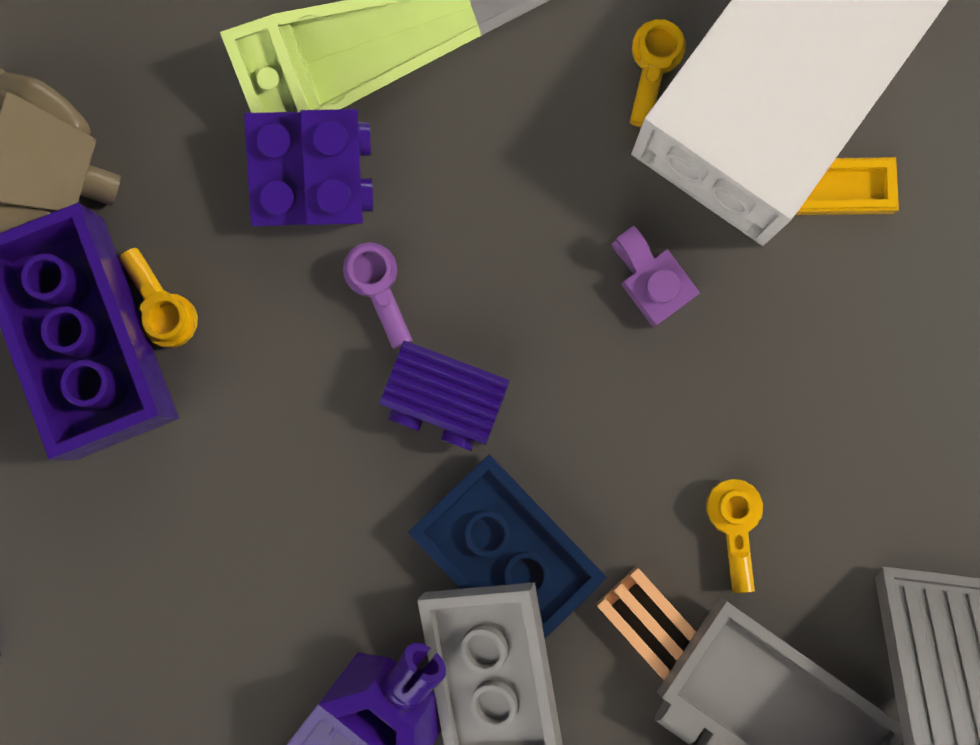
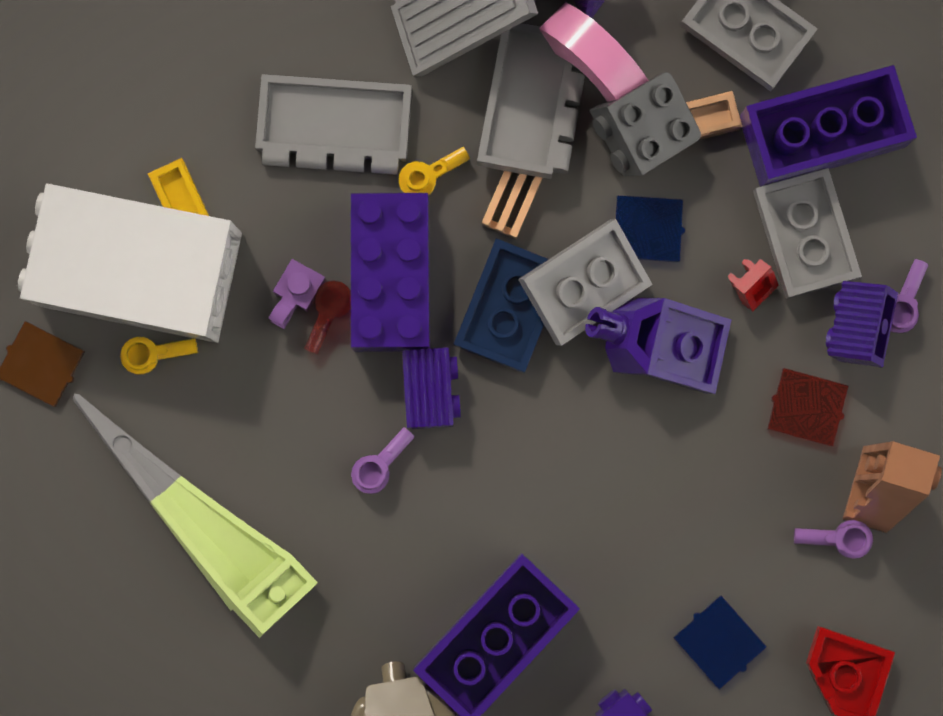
camera: 115 degrees left, 0 degrees up
(166, 317) = (460, 590): yellow plate -> none
(307, 167) = (323, 542): dark purple plate -> none
(619, 321) = (331, 302): none -> clear red plate
(626, 413) = (390, 272): none -> dark purple brick
(865, 433) = (333, 120): none -> light grey hinge

